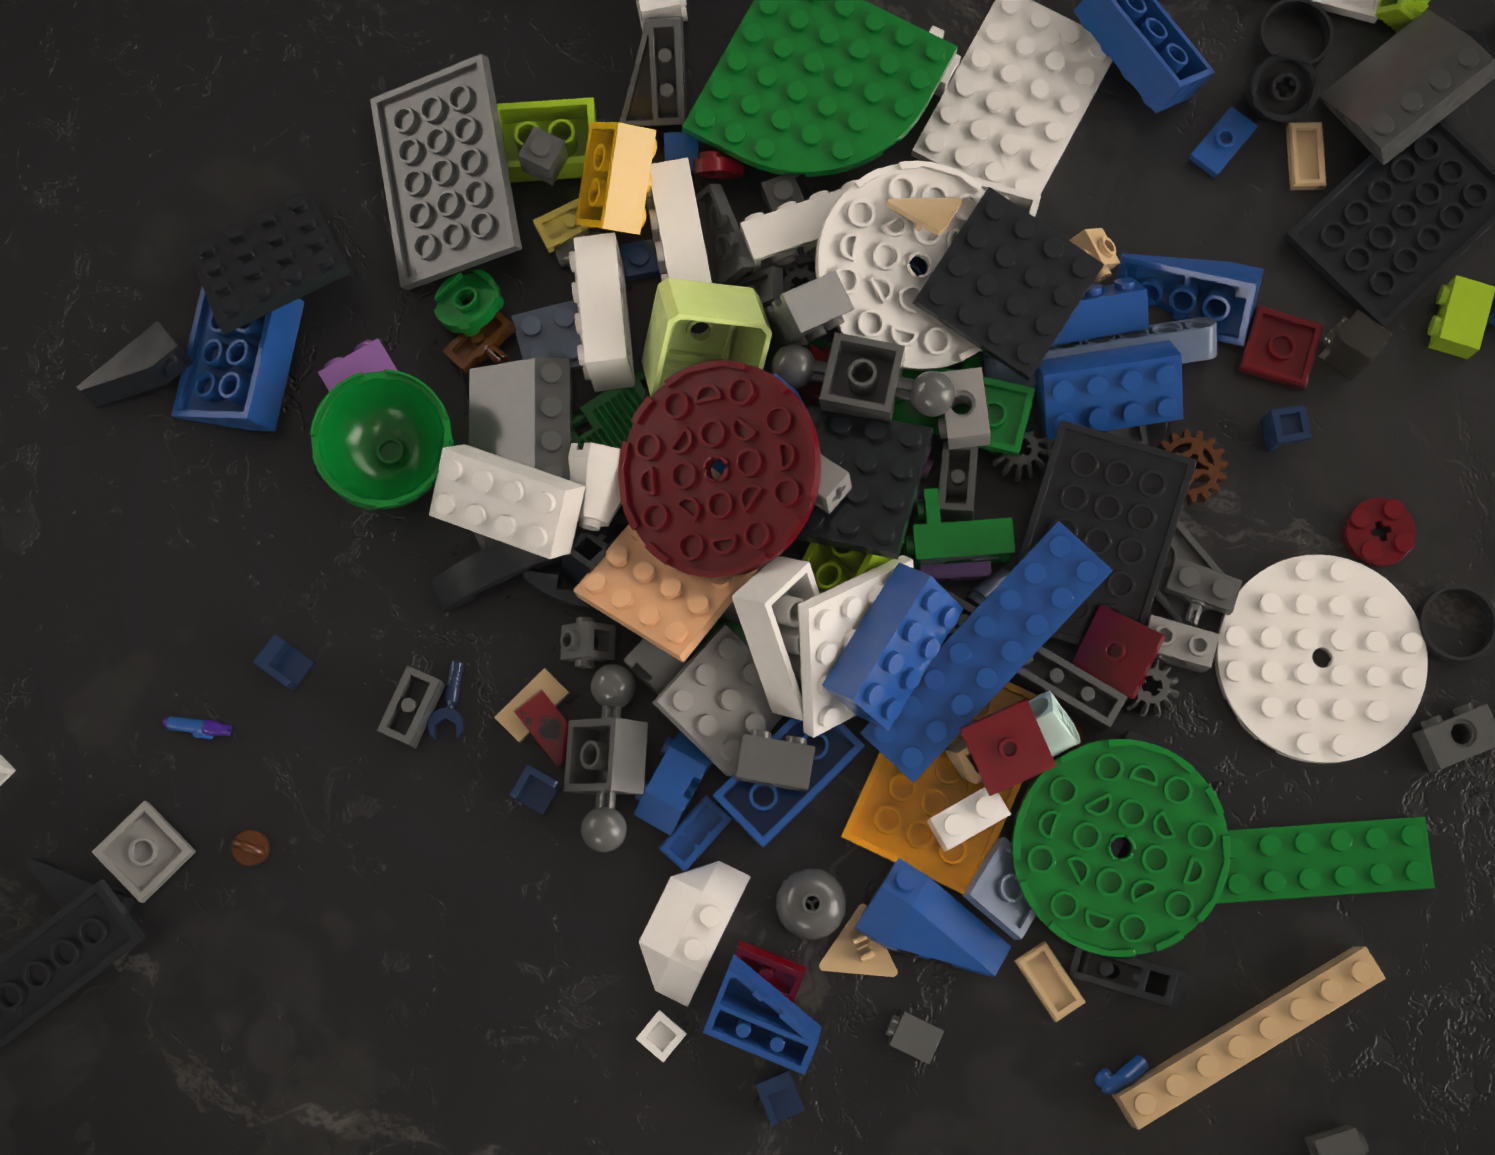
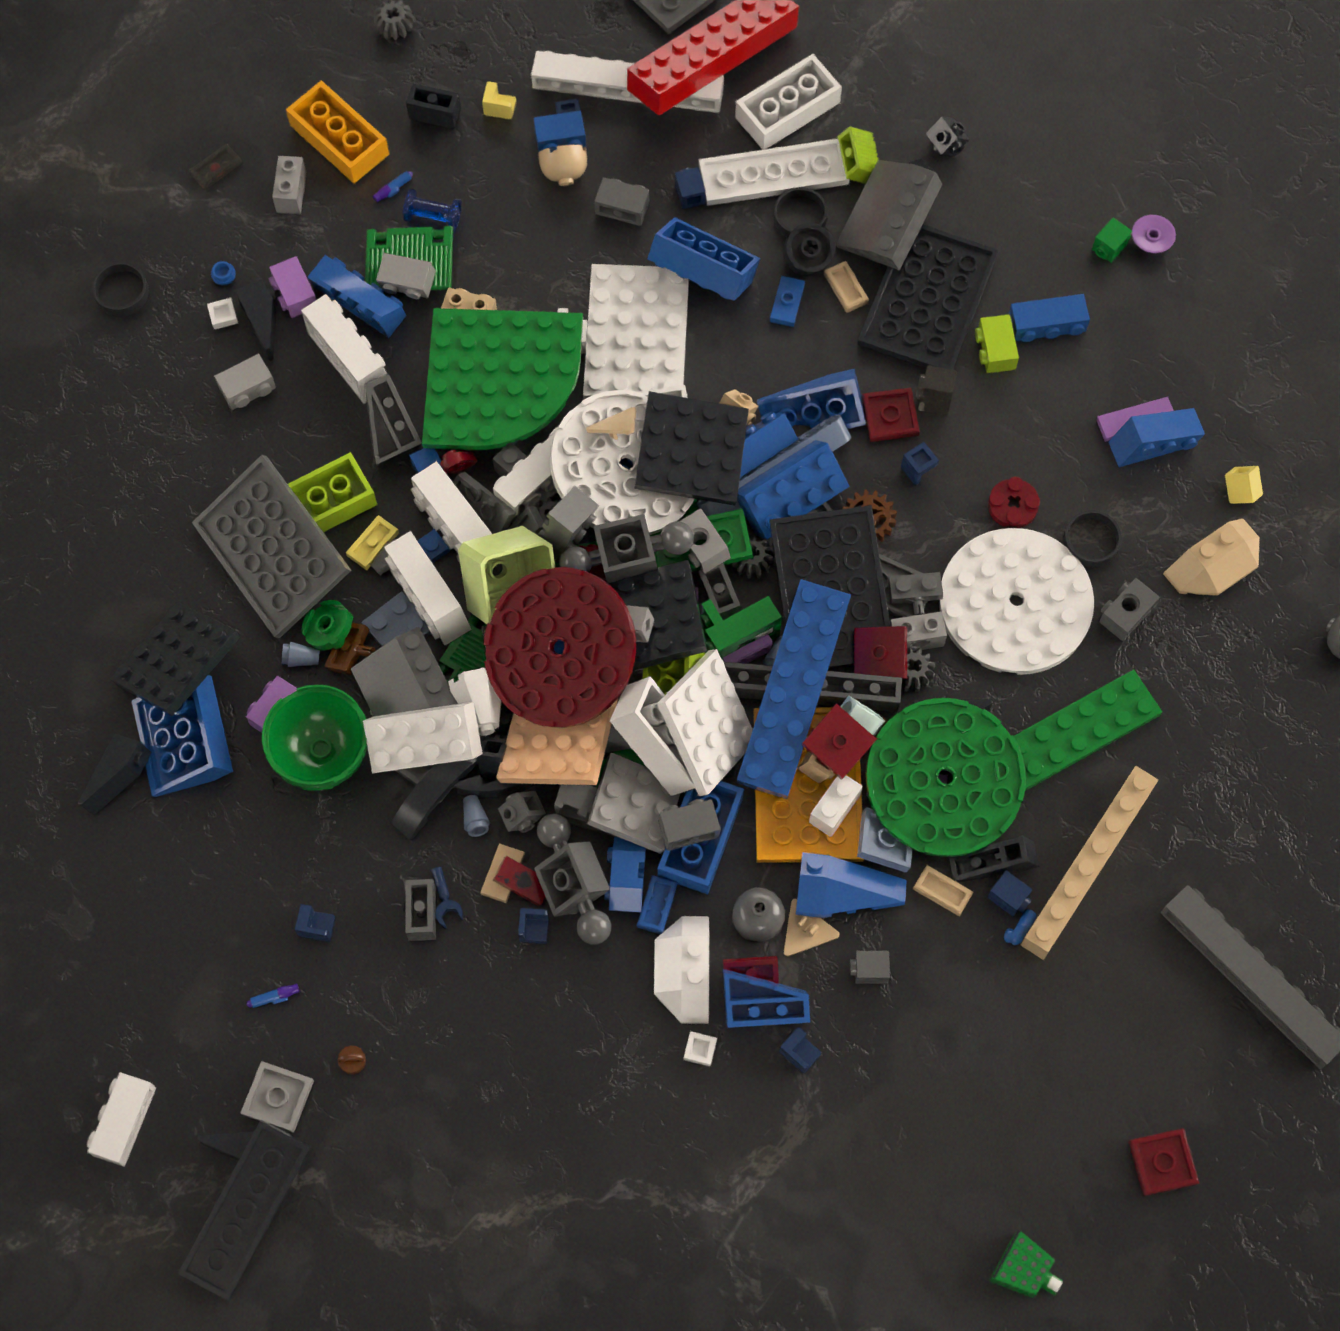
camera: 25 degrees left, 10 degrees down
(419, 323) = (299, 655): none -> sand blue cone
(531, 620) = (475, 818): none -> sand blue cone
(543, 155) = (337, 502): dark grey brick -> none
(616, 177) = (393, 495): yellow brick -> none
(893, 646) = (731, 709): blue brick -> none
(1129, 1028) = (1010, 894): none -> dark blue brick

